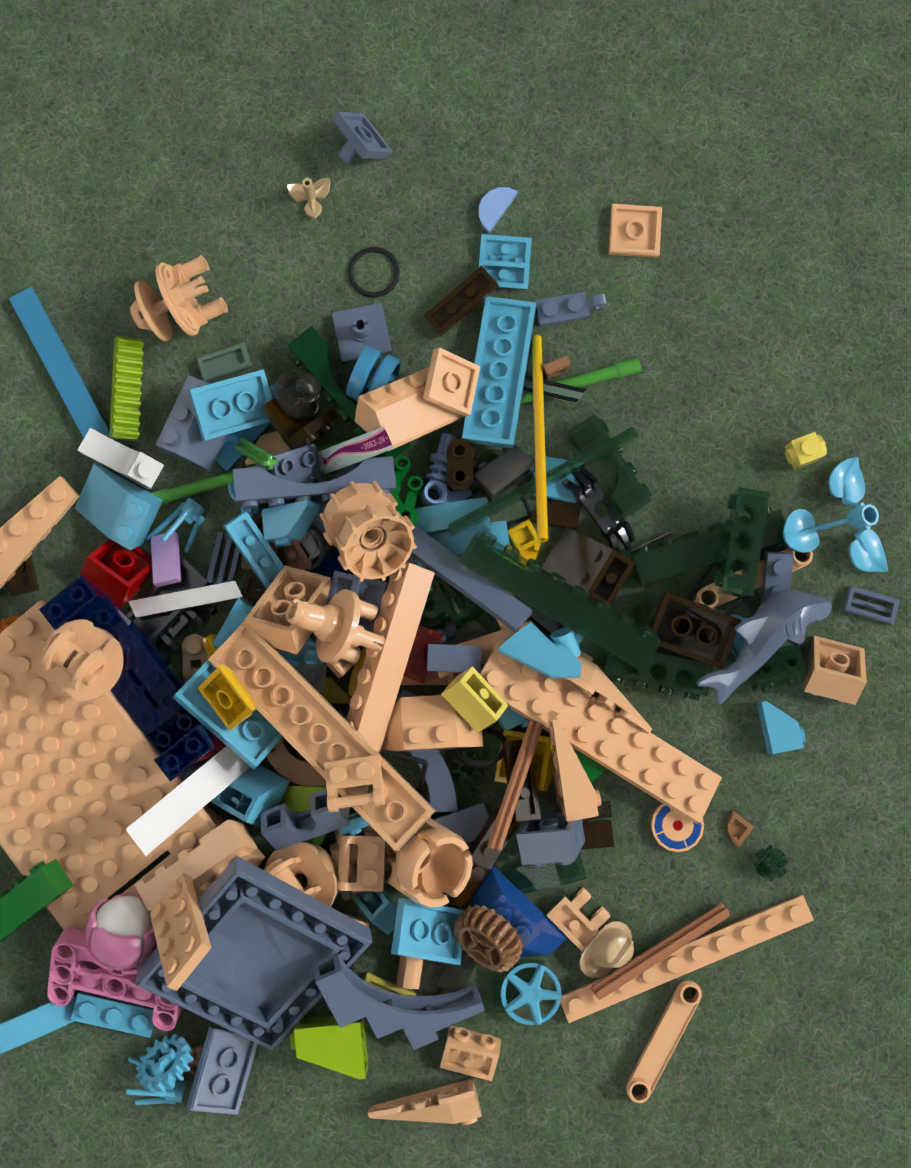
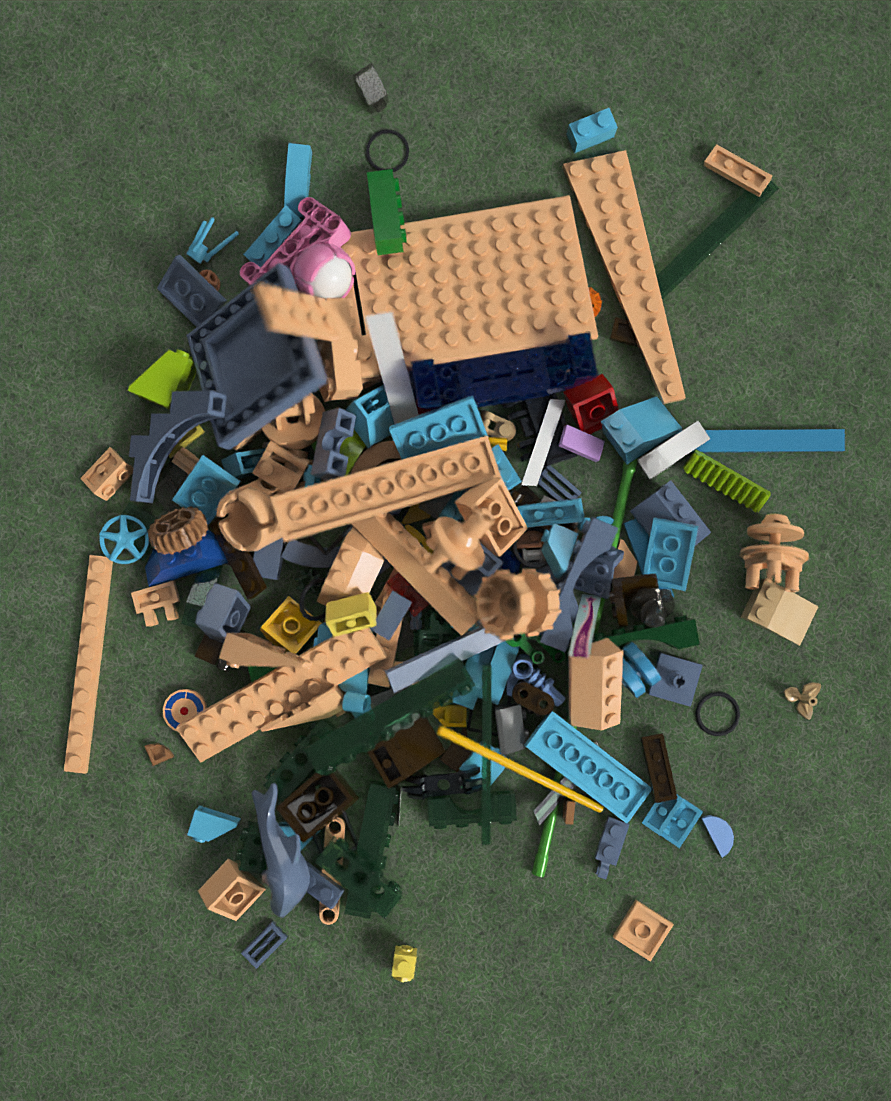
camera: 115 degrees right, 5 degrees up
(82, 660) = (535, 344): light nougat piece -> none
(164, 1063) = (218, 255): medium azure gear -> none
(187, 512) = (606, 479): medium azure plant -> none
(224, 362) = (707, 564): sand green tile -> none
(227, 697) = (449, 435): yellow slope -> none
(234, 265) = (779, 611): none -> tan slope
(256, 453) = (622, 551): bright green axle -> none
(354, 773) = (343, 495): light nougat plate -> none
(361, 137) = (828, 761): sand blue tile -> none
(443, 1104) = (82, 436): light nougat wedge -> none
(451, 382) = (598, 726): light nougat plate -> none
(515, 786) = (273, 609): nougat axle -> none
(528, 803) = (276, 615): dark brown plate -> none
(539, 653) = (358, 680): medium azure panel -> none
(608, 950) = (123, 611): tan piece -> none
(660, 951) = (102, 648): nougat axle -> none
(663, 1041) = (39, 615): light nougat piece -> none
(770, 863) = (120, 763): clear green gear -> none
(845, 483) = (305, 964): medium azure plant -> none

